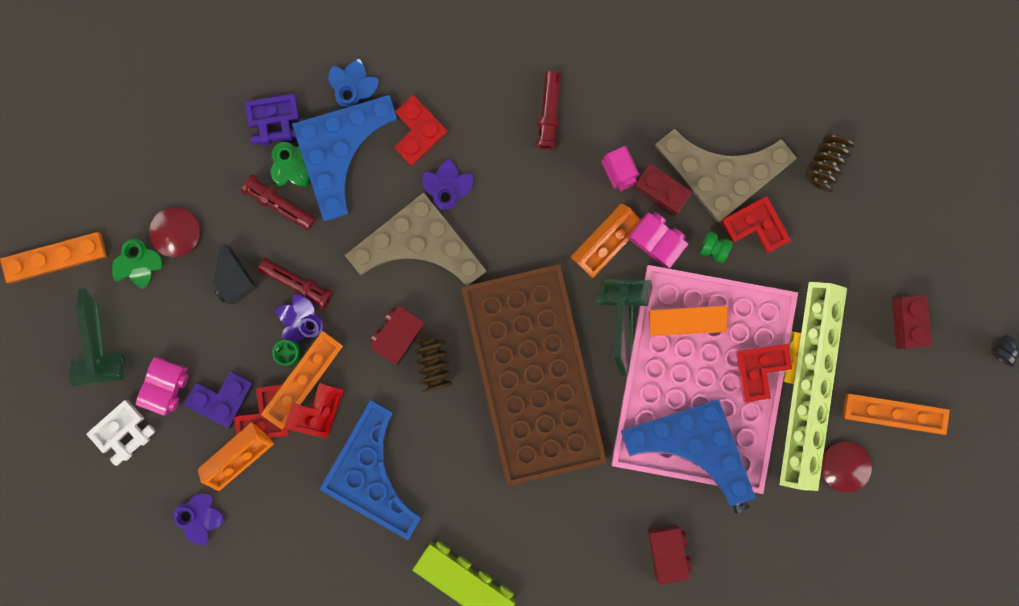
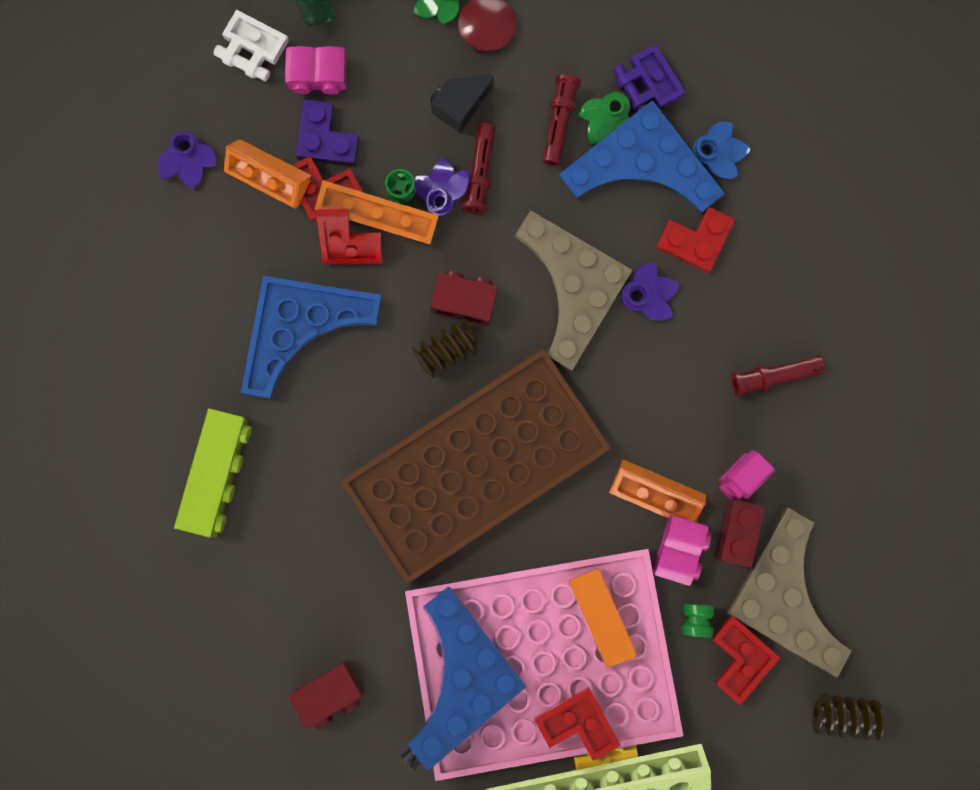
camera: 60 degrees right, 5 degrees down
(624, 295) = (603, 535): clear green piece -> none

